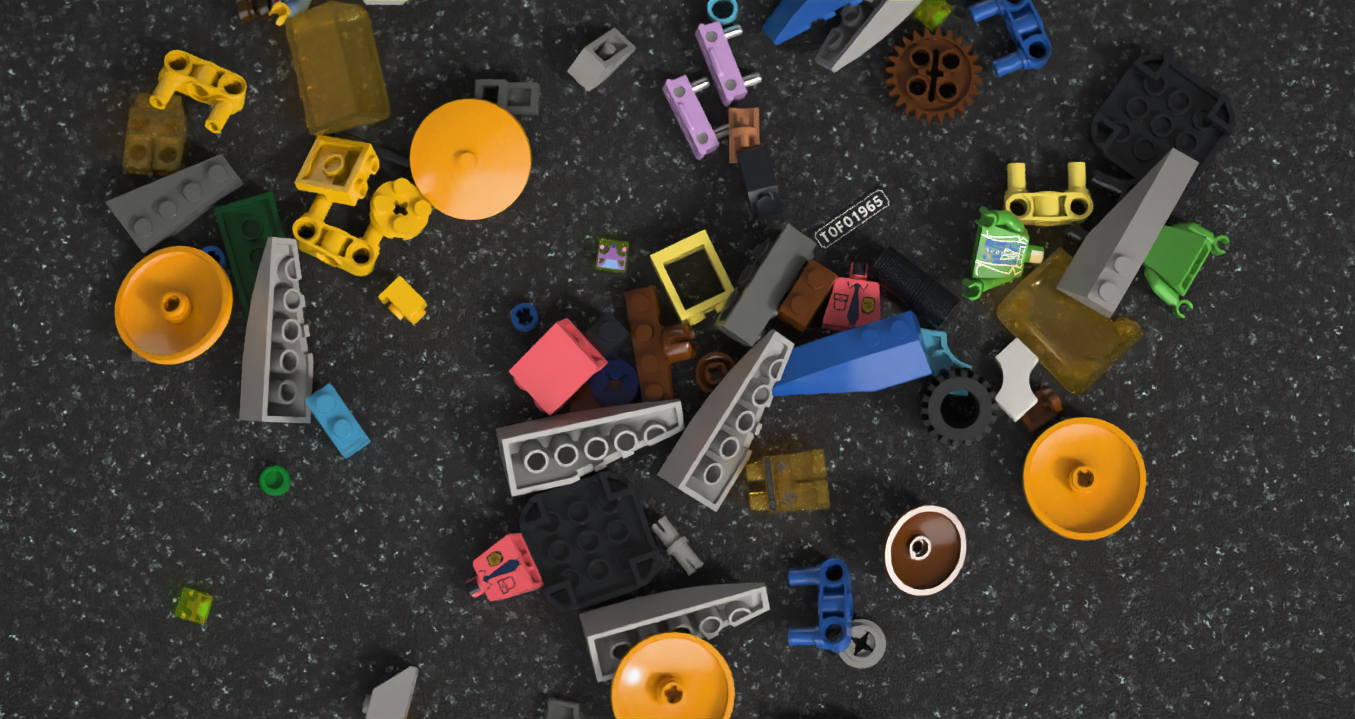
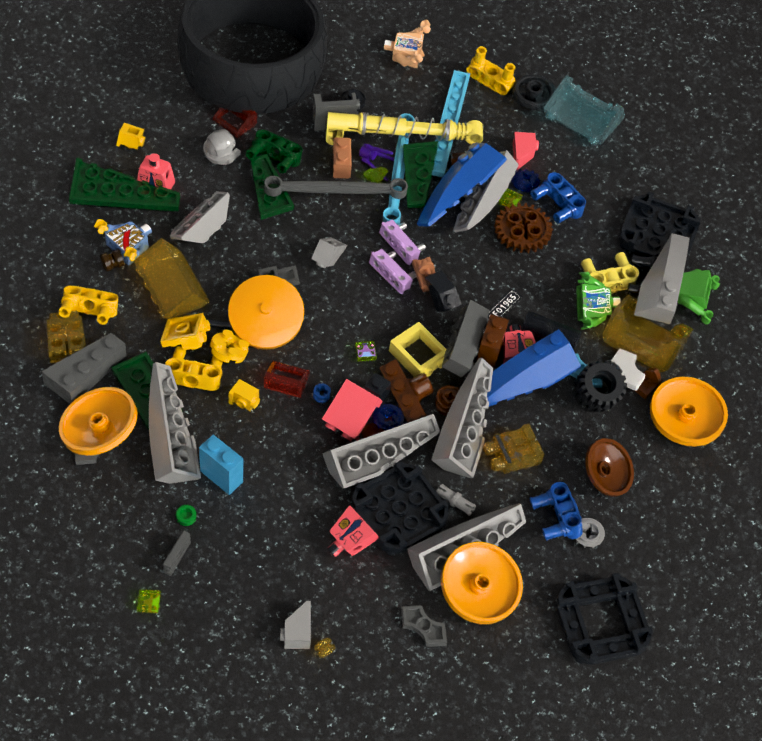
camera: 20 degrees left, 25 degrees down
(246, 543) = (176, 553): none -> dark grey tile
(470, 293) = (285, 384): none -> clear red tile

